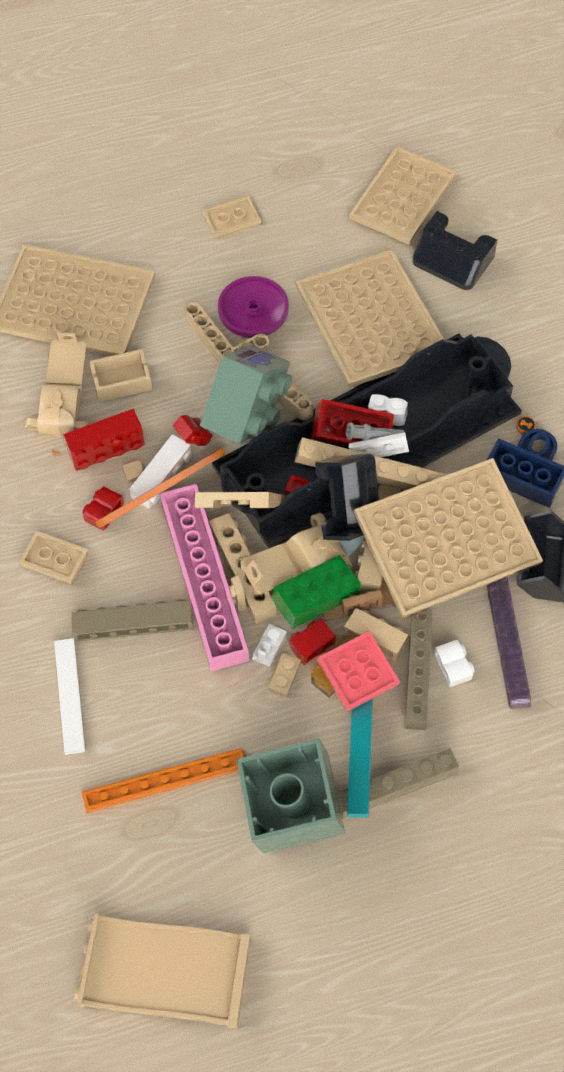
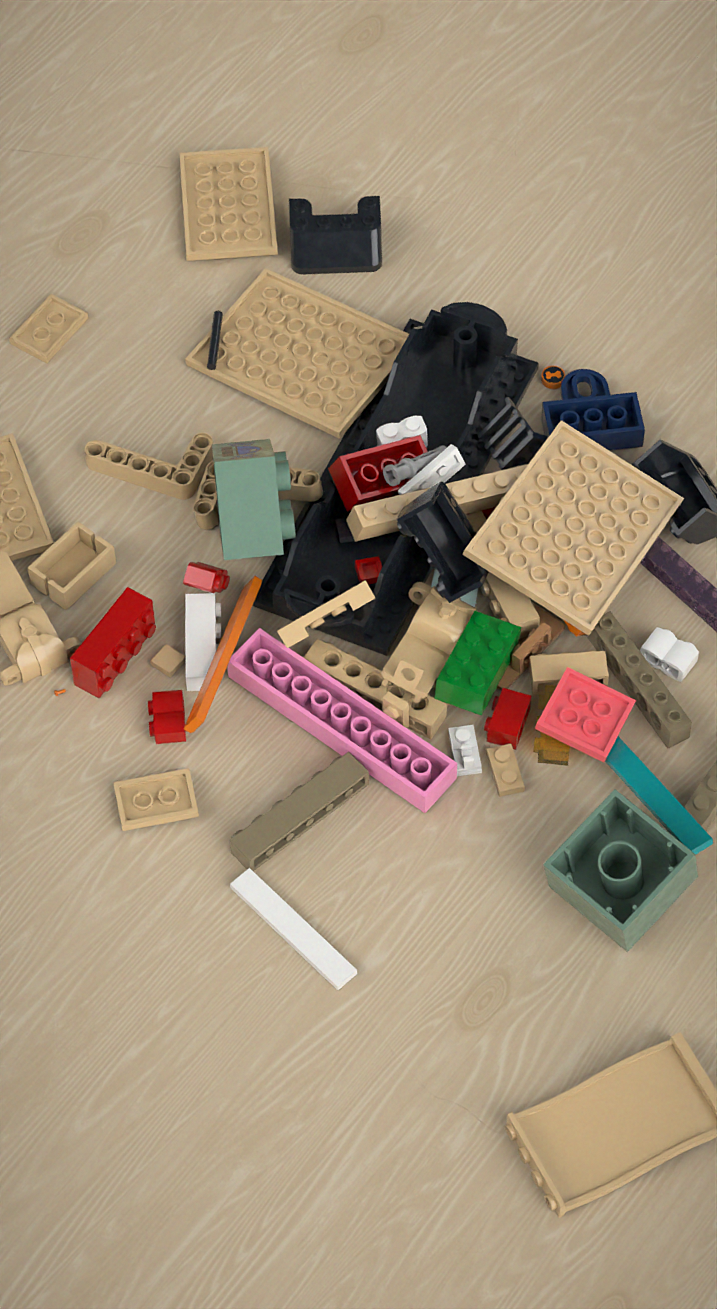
camera: 35 degrees left, 5 degrees down
(161, 780) = (464, 949): orange tile -> none
(253, 306) = (161, 410): magenta dish -> none
(321, 279) = (214, 341): none -> black bar
(459, 458) = (519, 447): none -> black plate

